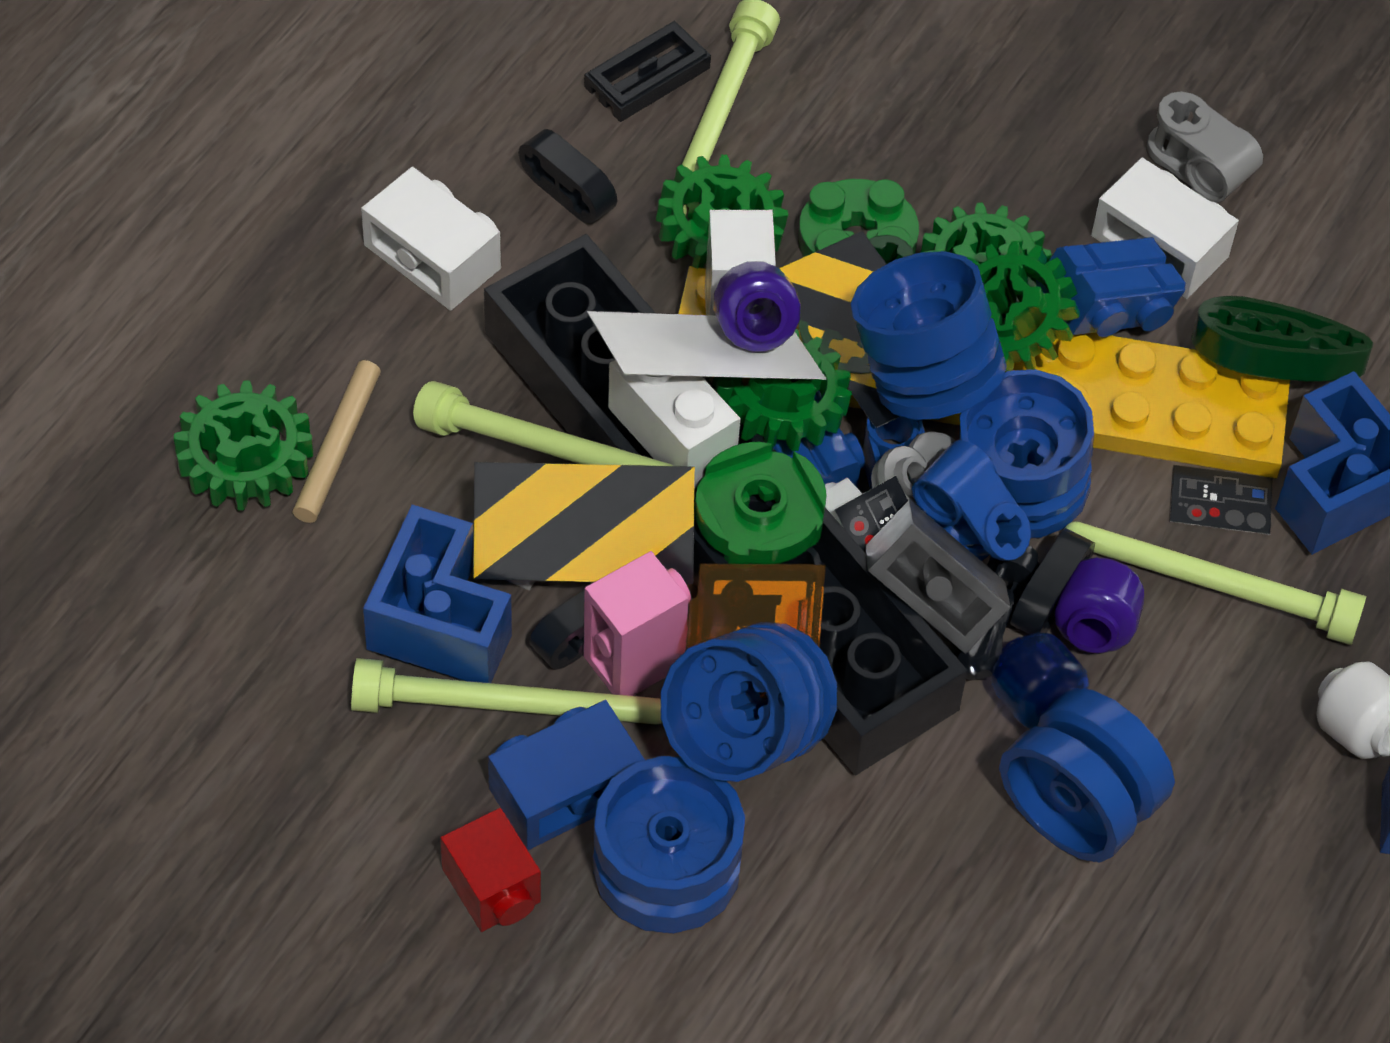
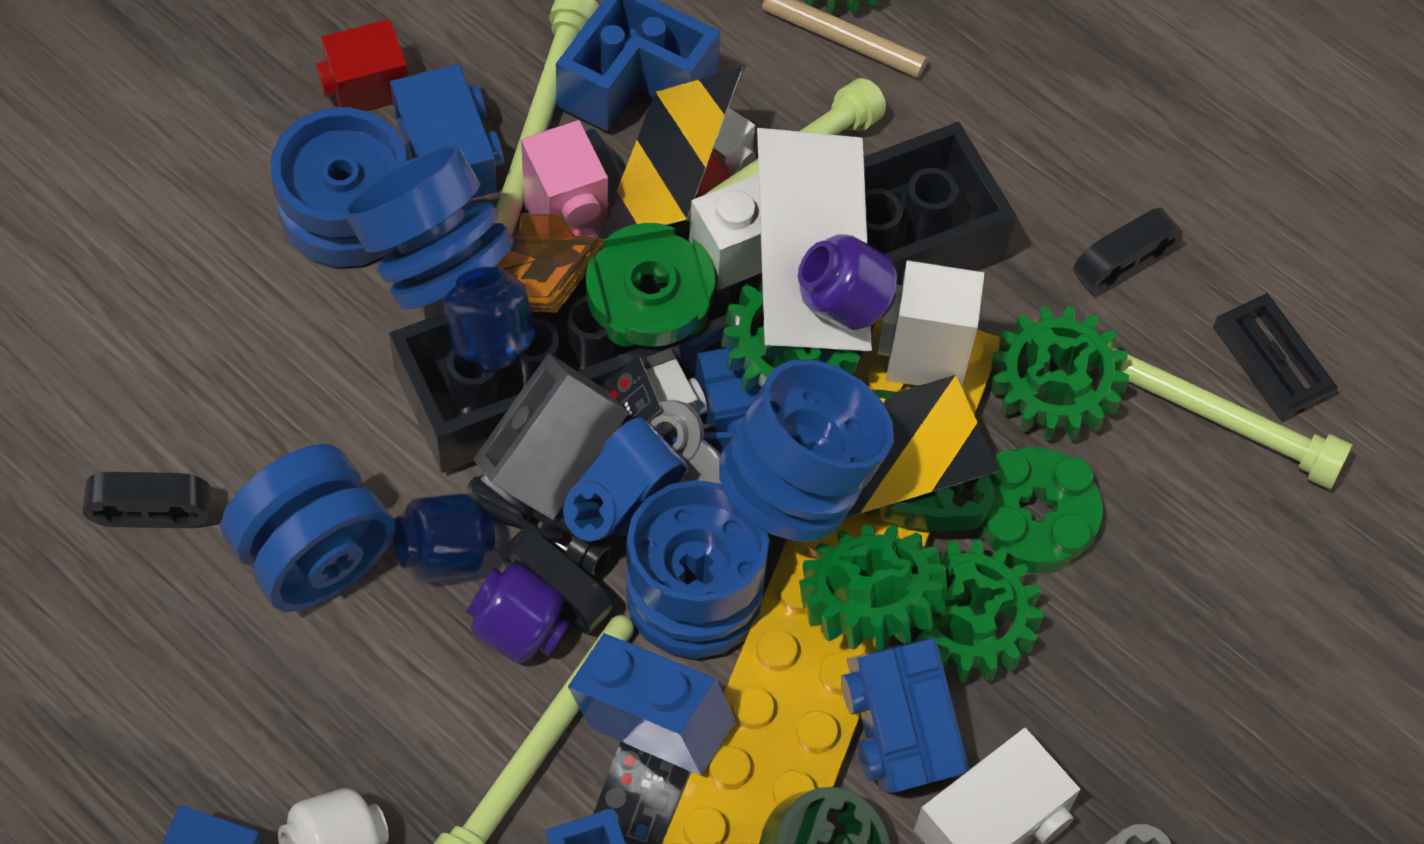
camera: 100 degrees right, 5 degrees up
(432, 237) = (1060, 126): white brick -> none
(853, 616) = (489, 317): none -> clear blue head
(1077, 957) = (146, 500): none -> black beam
(1165, 470) = (652, 703): none -> blue brick

